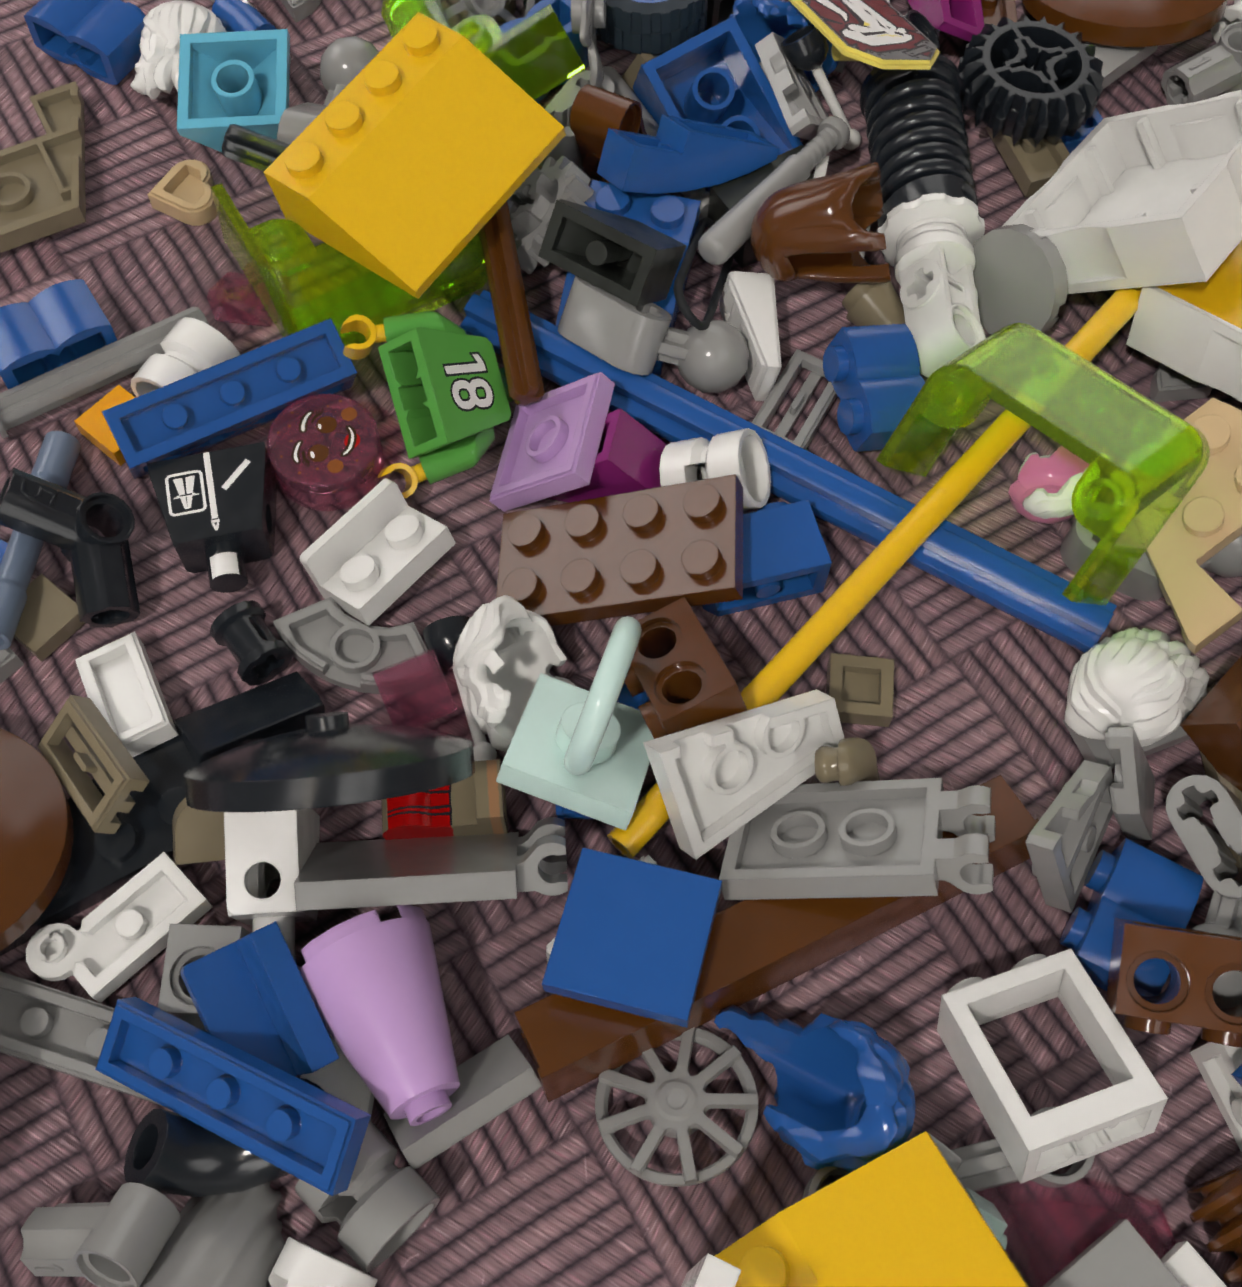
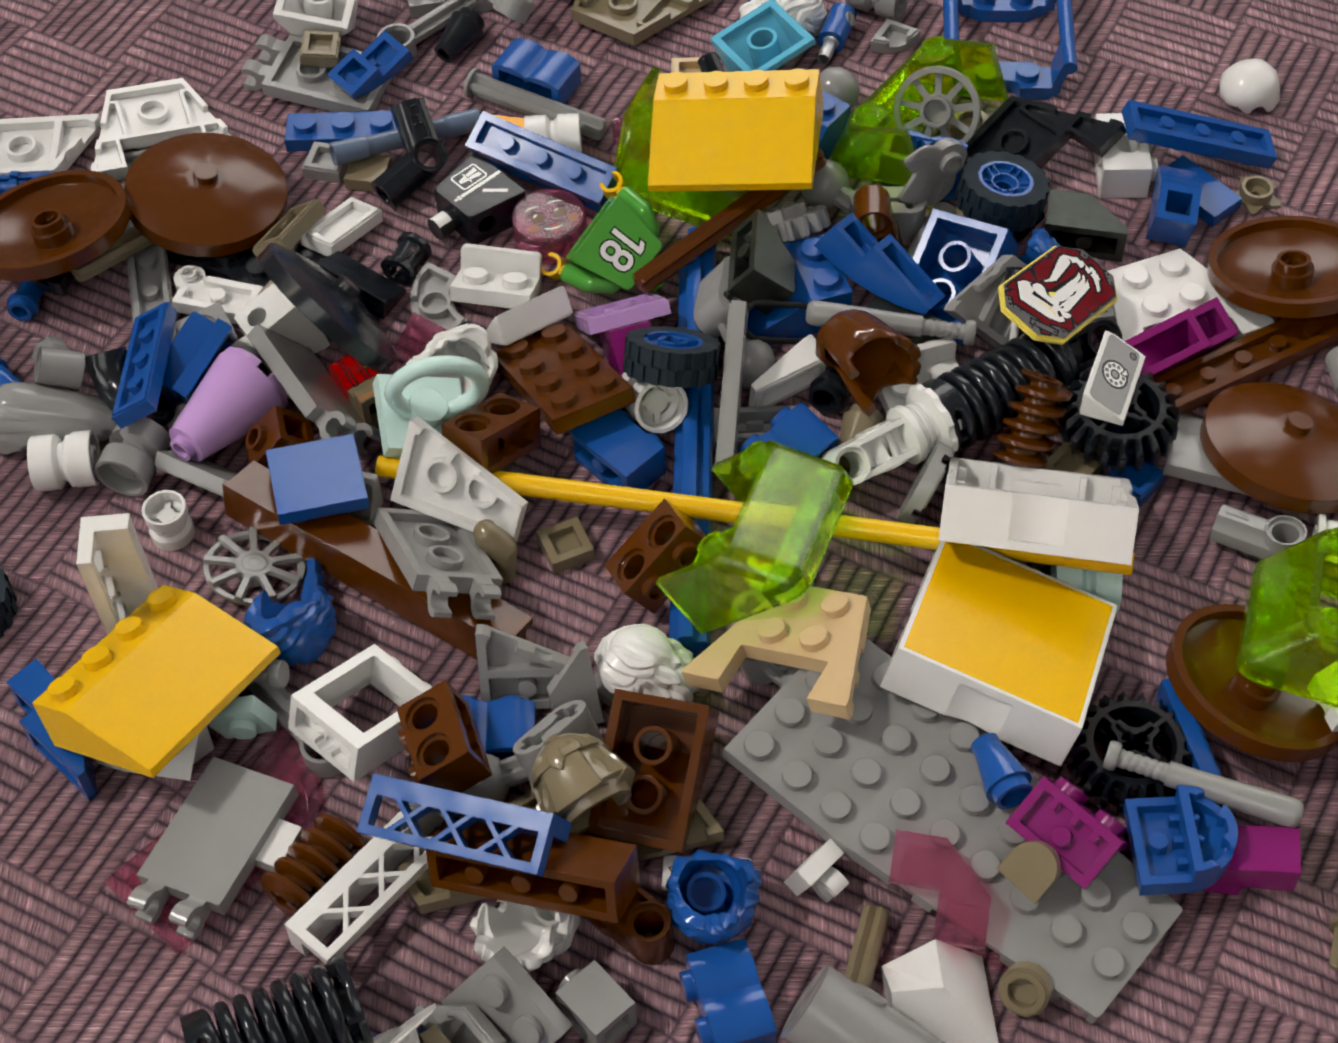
camera: 65 degrees right, 10 degrees down
(480, 548) = (530, 317): none -> white slope
(492, 962) = (275, 430): none -> reddish brown brick
(519, 1183) = (168, 520): none -> white wheel
(709, 411) = (671, 356): none -> black wheel
(777, 380) = (732, 380): none -> light grey tile
(802, 306) = (829, 389): none -> black cone
(968, 587) = (657, 547): none -> reddish brown brick
(1008, 47) = (1112, 380): none -> slope
(1008, 141) = (1033, 420): none -> reddish brown piece

